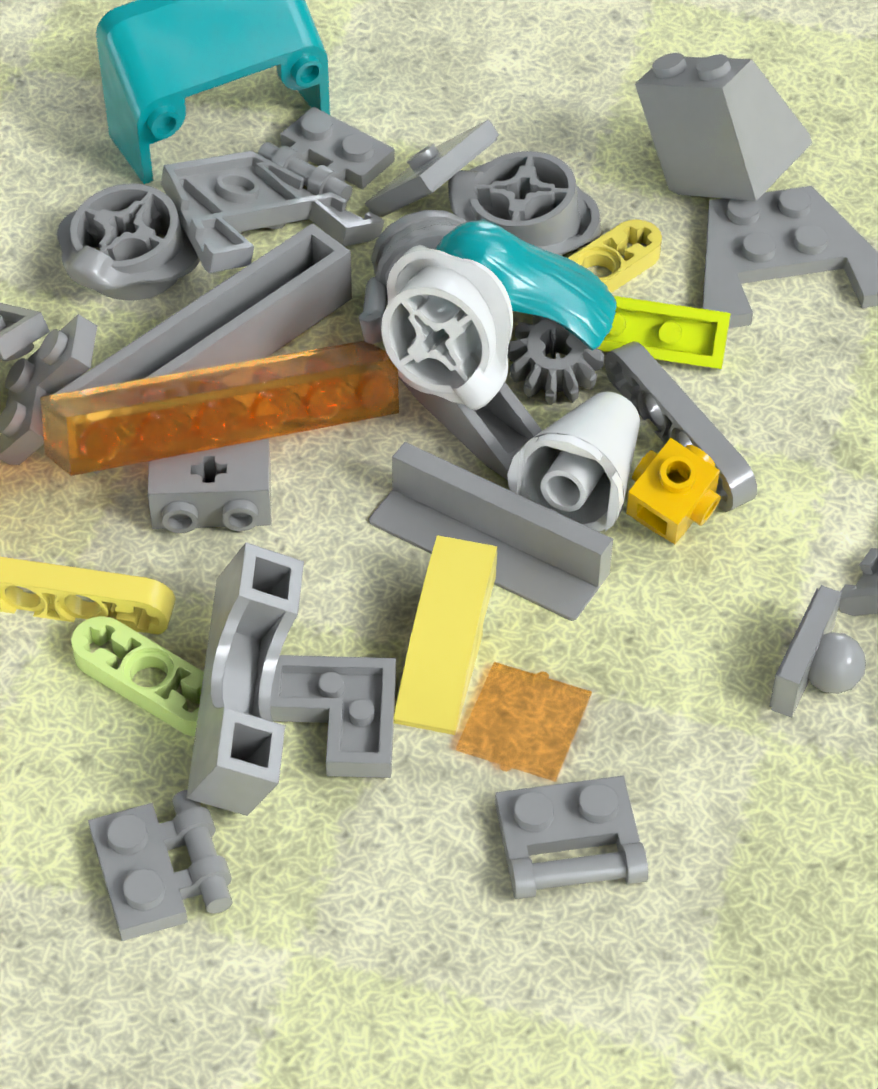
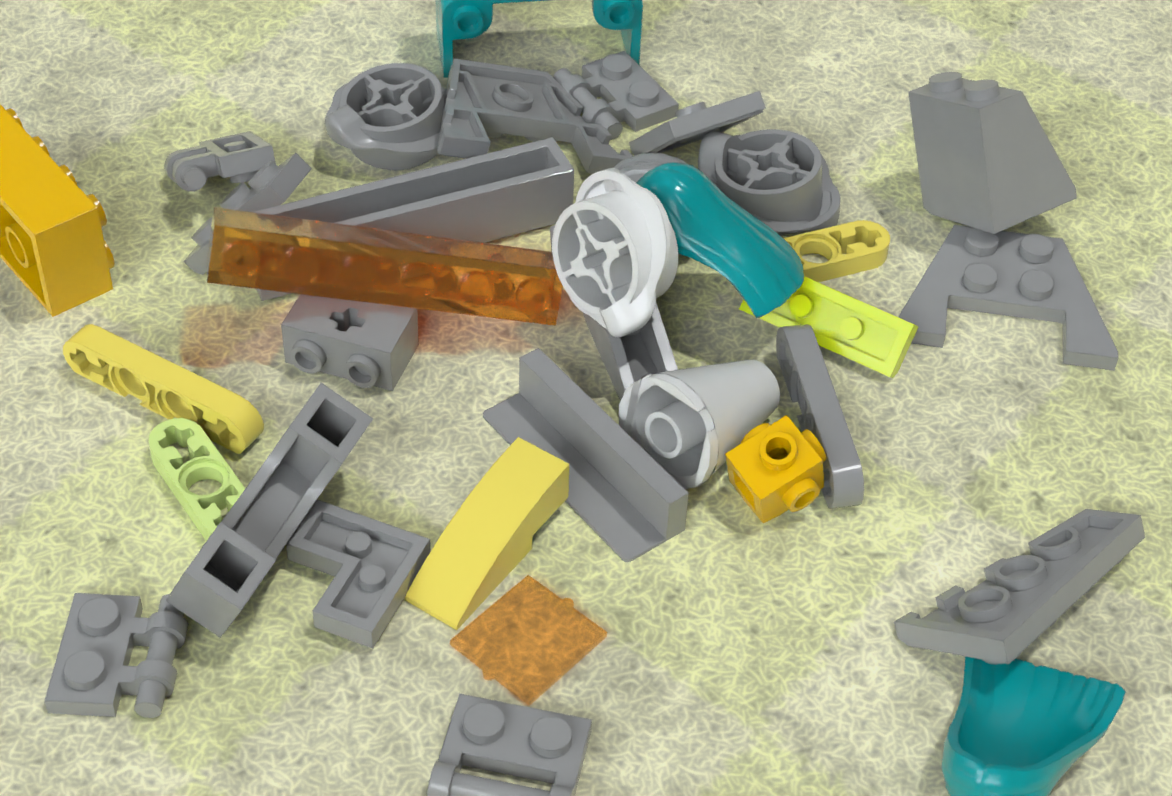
camera: 20 degrees right, 5 degrees down
(552, 374) = (713, 332): light grey gear -> none
(817, 655) = (842, 667): light grey tile -> none

